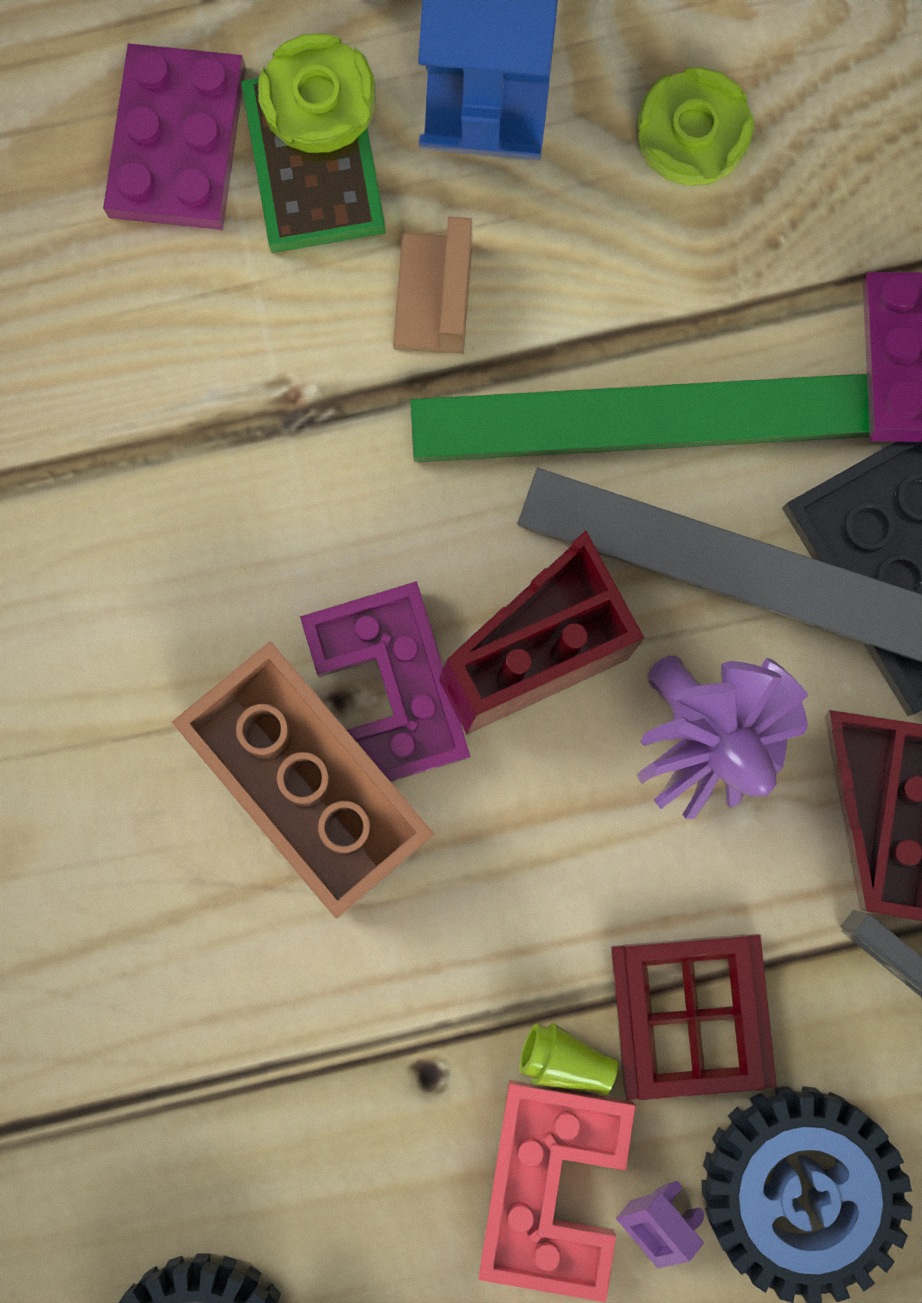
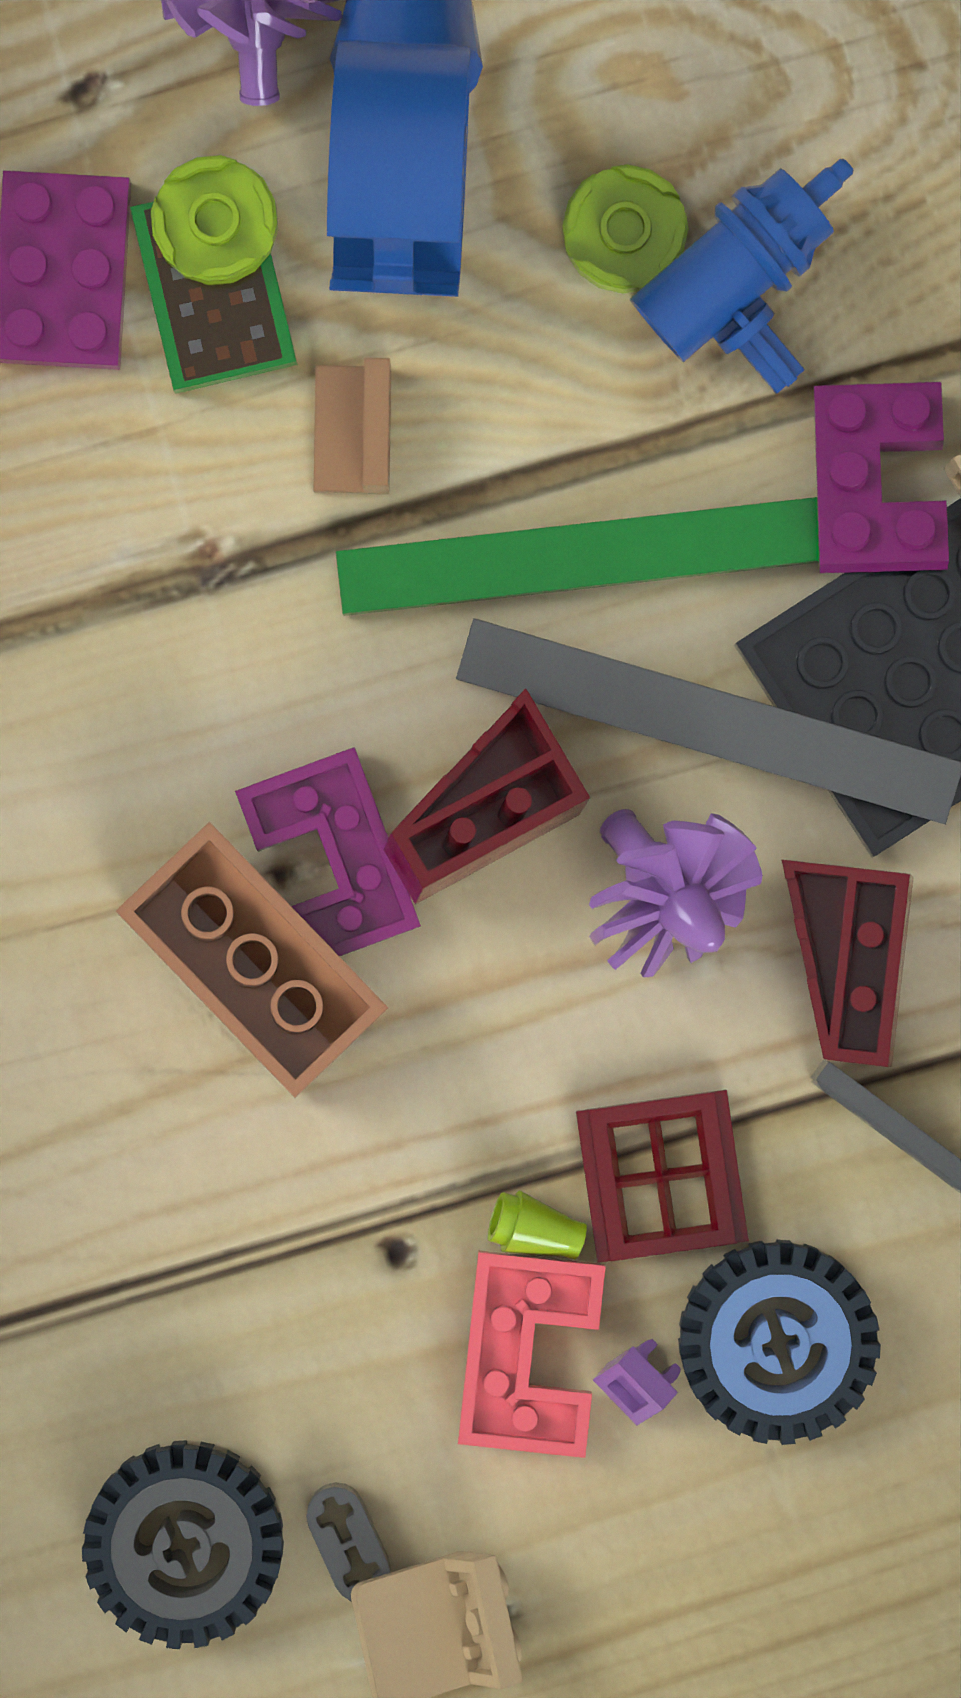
camera: 10 degrees left, 5 degrees up
(819, 138) = (720, 277): none -> blue piece

